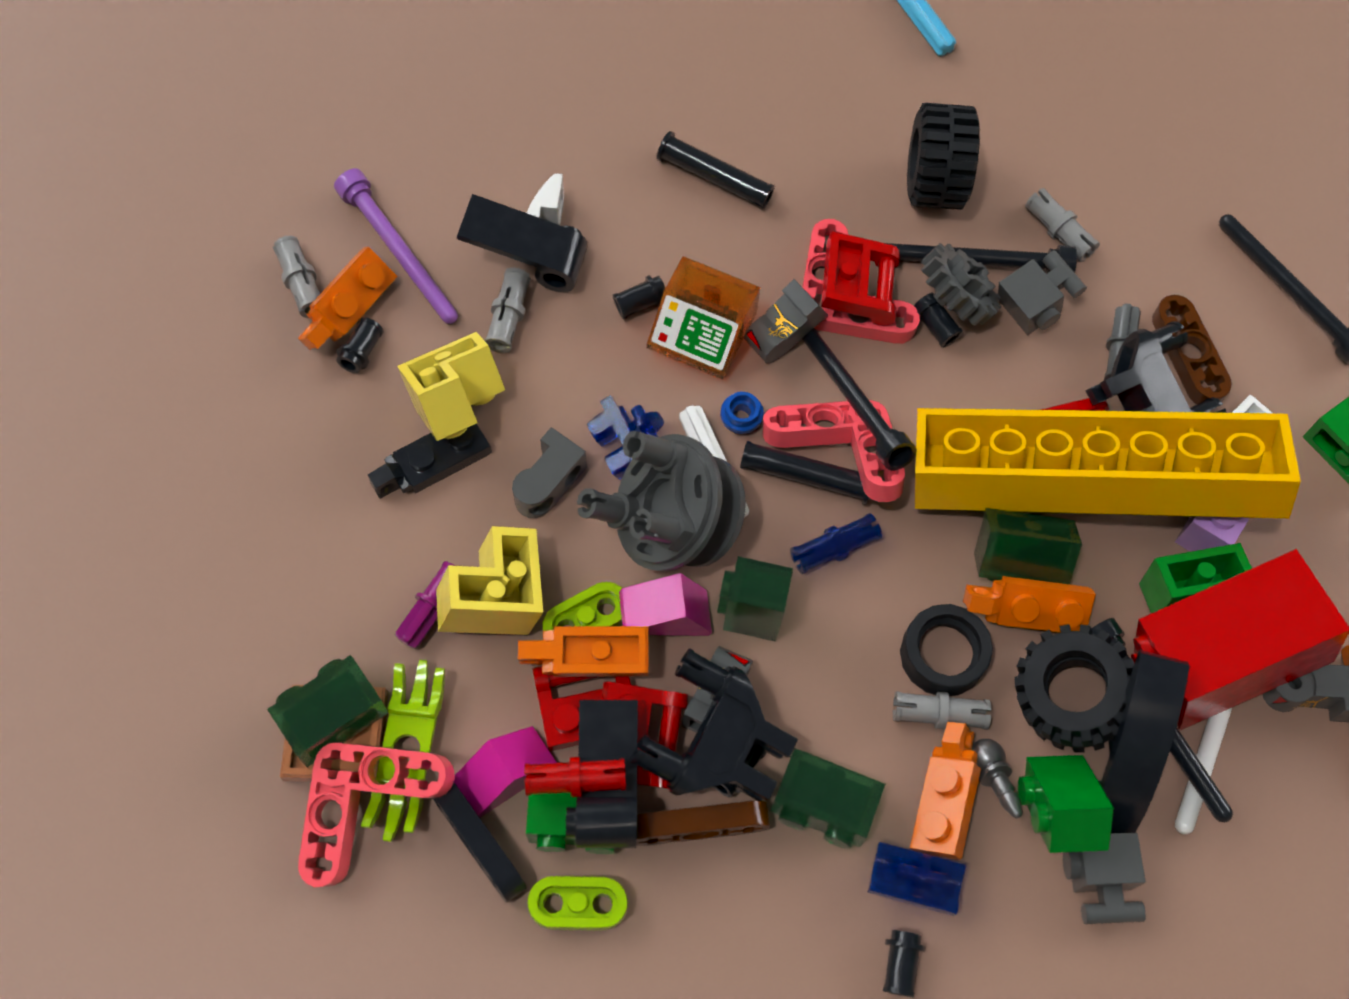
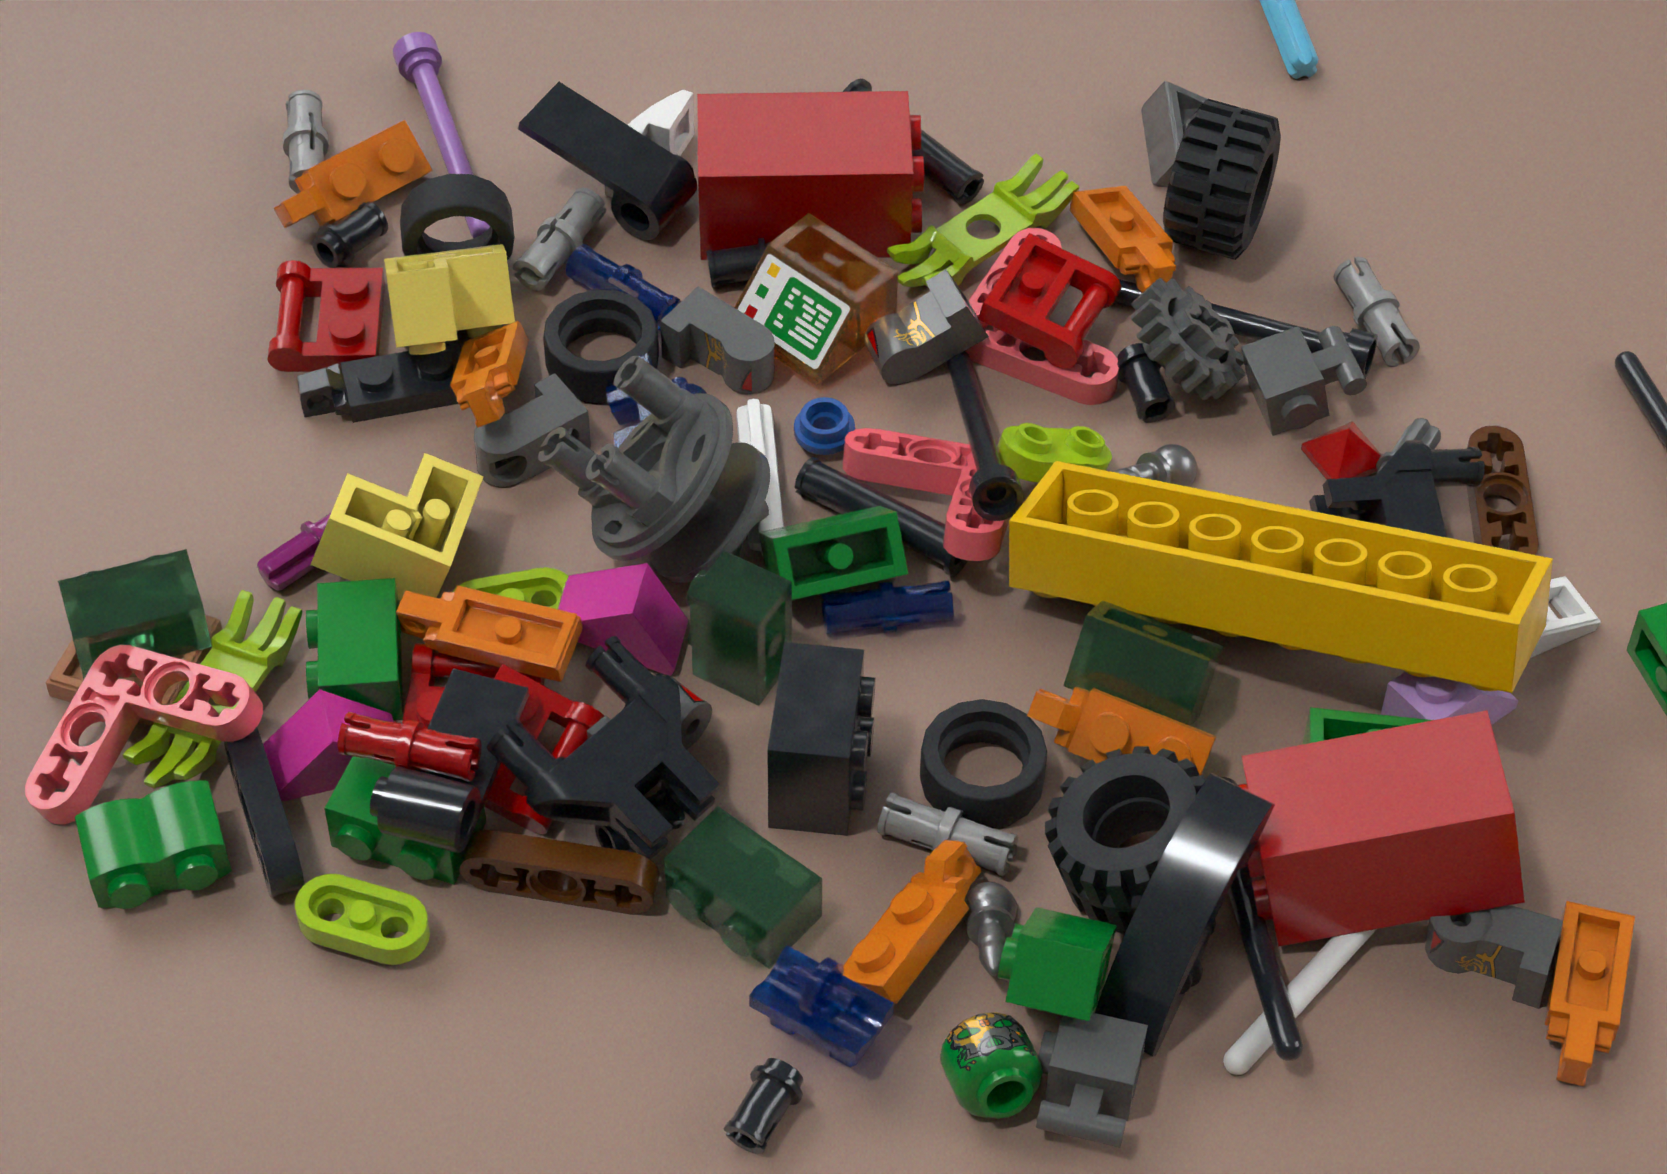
camera: 20 degrees right, 15 degrees down
(381, 411) = (347, 316): none -> red plate
(408, 892) = (152, 844): none -> green brick
(431, 310) = (455, 196): none -> black tyre
(494, 686) = (357, 643): none -> green brick
(505, 437) = (489, 371): none -> orange hinge
(539, 329) = (595, 270): none -> clear blue pin
(562, 361) = (593, 313): none -> black tyre
(650, 364) = (720, 340): none -> dark grey leg
(663, 211) = (802, 153): none -> brick
(793, 517) = (836, 551): none -> green brick
(796, 208) = (1003, 207): none -> lime piece
(842, 672) = (819, 739): none -> black brick
(884, 120) = (1164, 123): none -> flat silver slope
(889, 211) = (1125, 233): none -> orange hinge
(902, 394) = (1034, 449): none -> lime plate
(970, 386) = (1167, 464): none -> flat silver bar
(1040, 887) = (991, 1065): none -> green head
(1079, 339) = (1342, 453): none -> red slope

